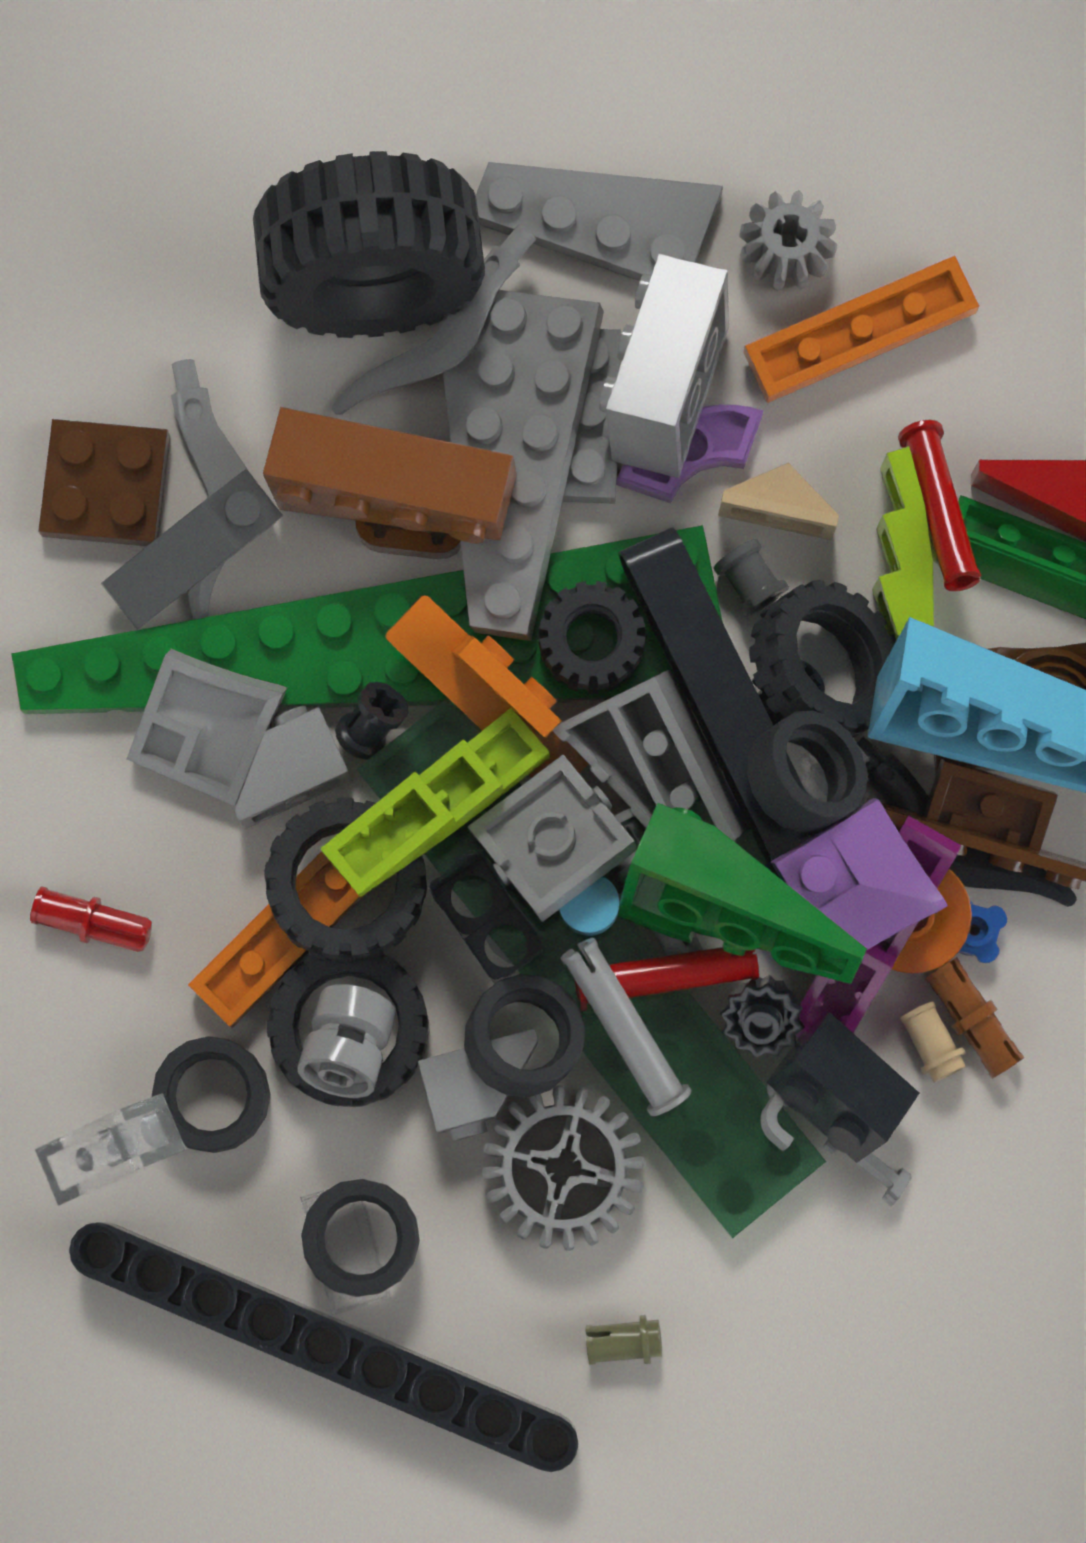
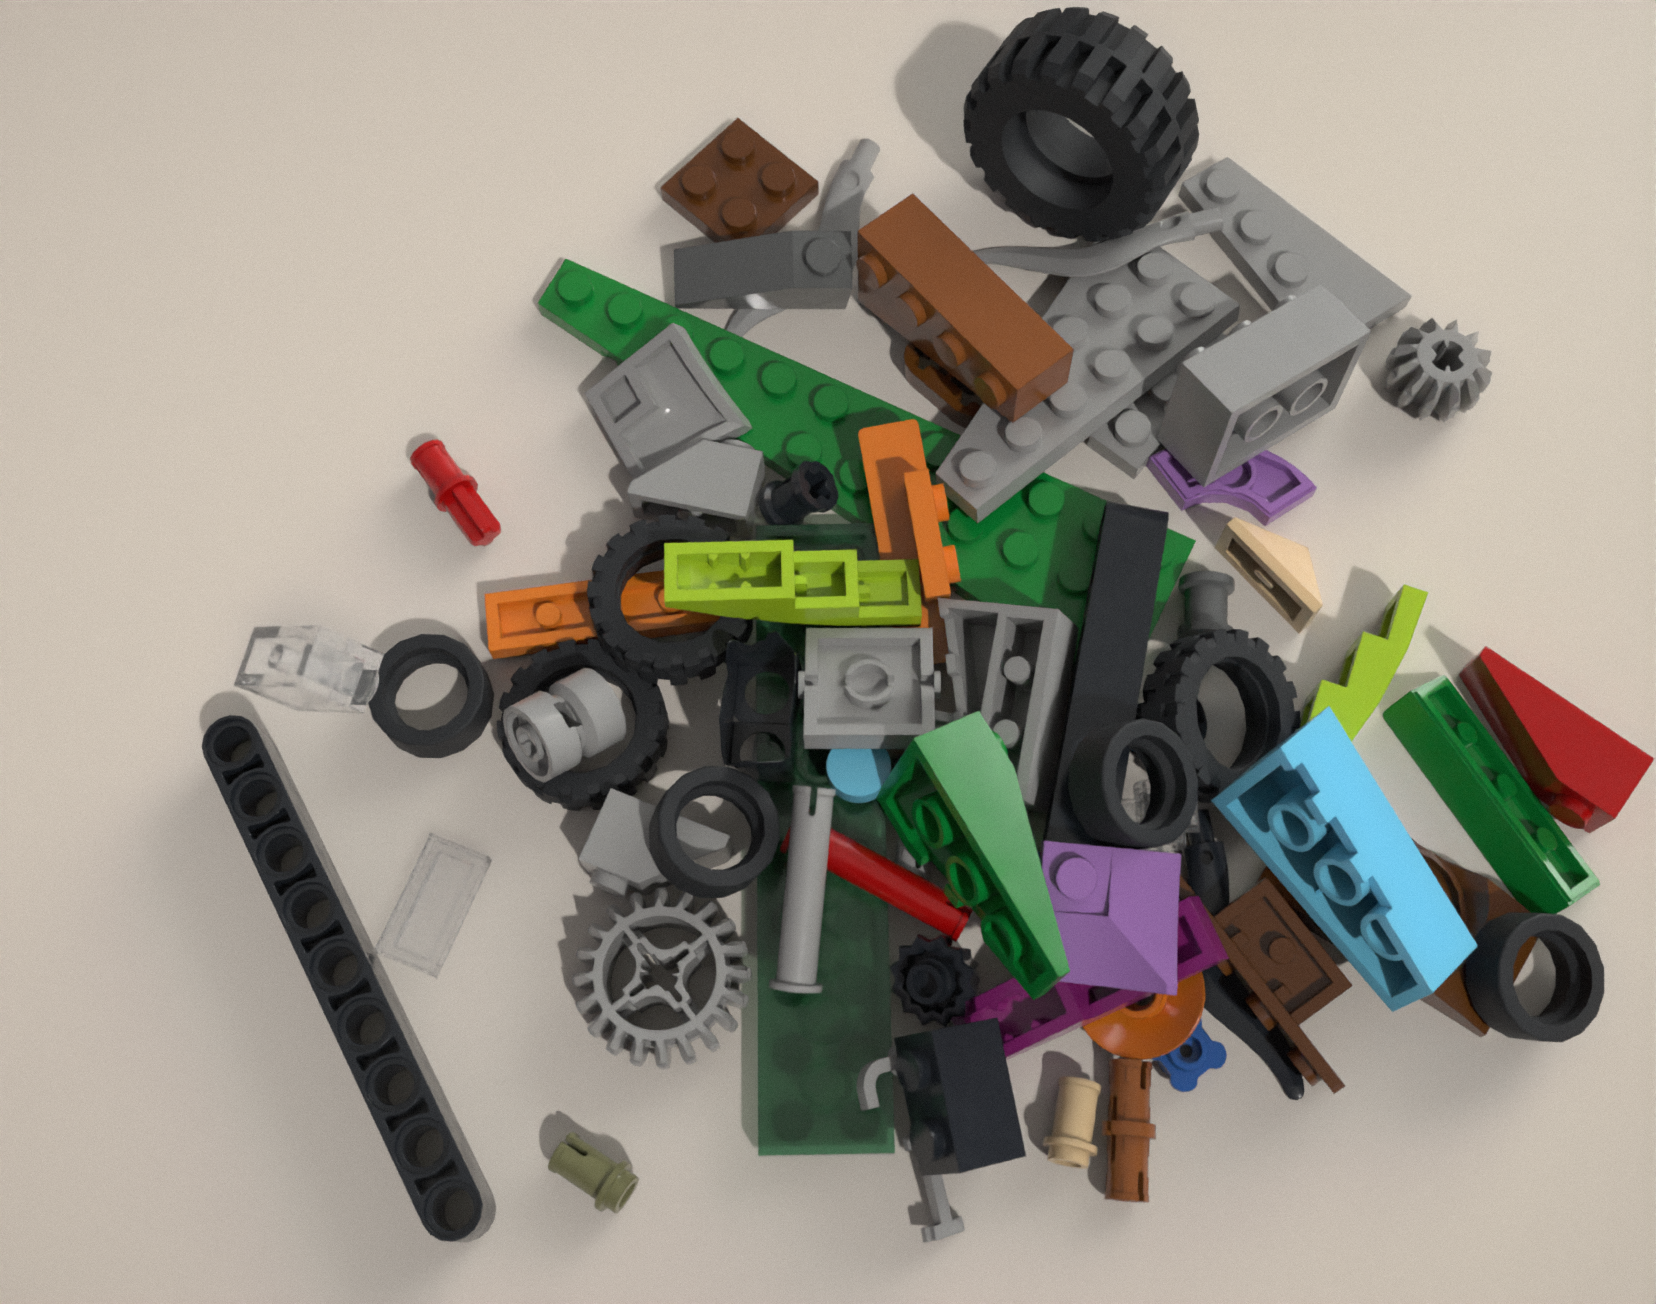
camera: 40 degrees right, 10 degrees down
(314, 1237) = (405, 872): black tyre -> none
(583, 601) = (1039, 521): black tyre -> none
(861, 329) = (1453, 480): orange plate -> none
(941, 505) = (1422, 663): red pin -> none

